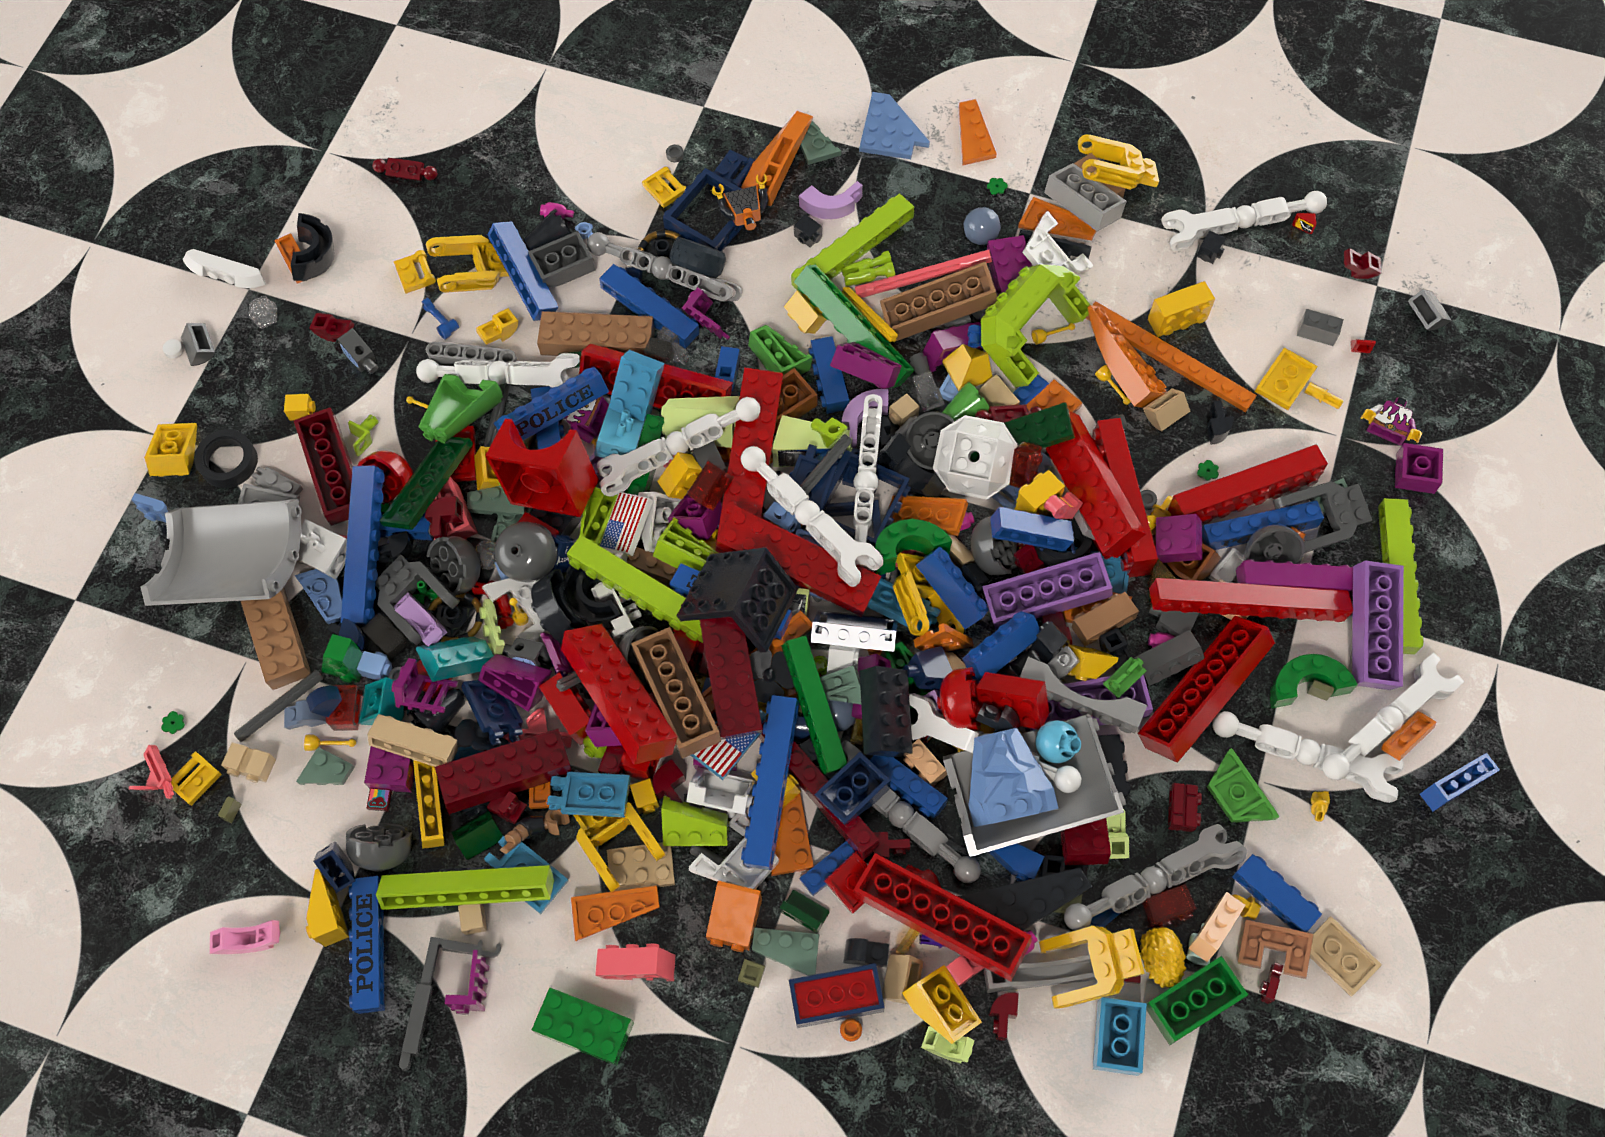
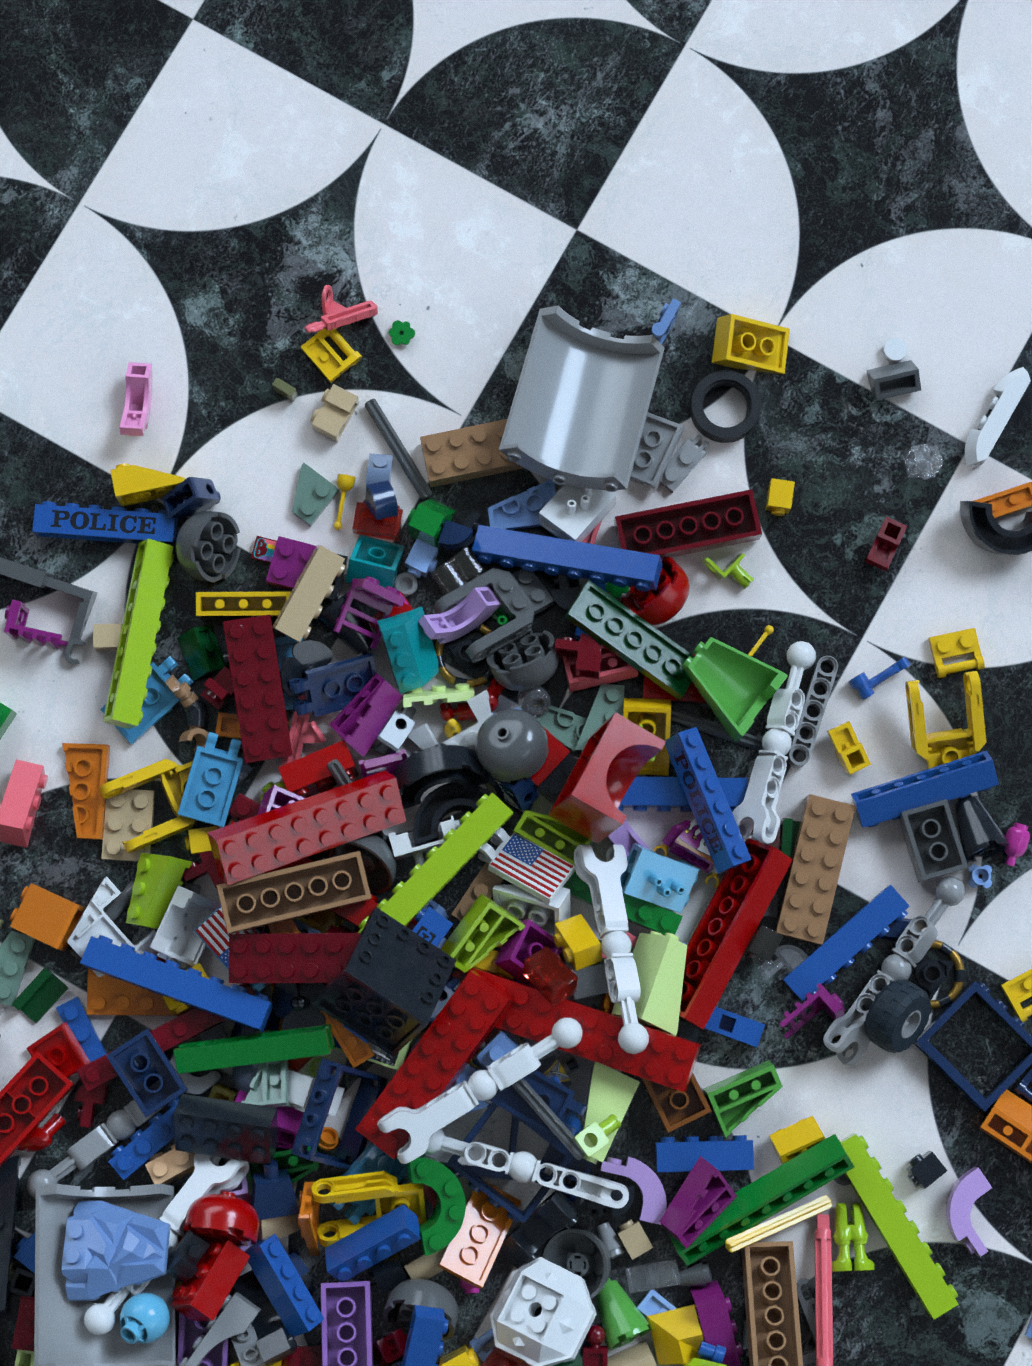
camera: 95 degrees right, 15 degrees up
(358, 351) = (847, 566): dark grey torso -> none
(636, 385) = (715, 908): dark azure brick -> none
(744, 204) = (968, 1090): torso -> none

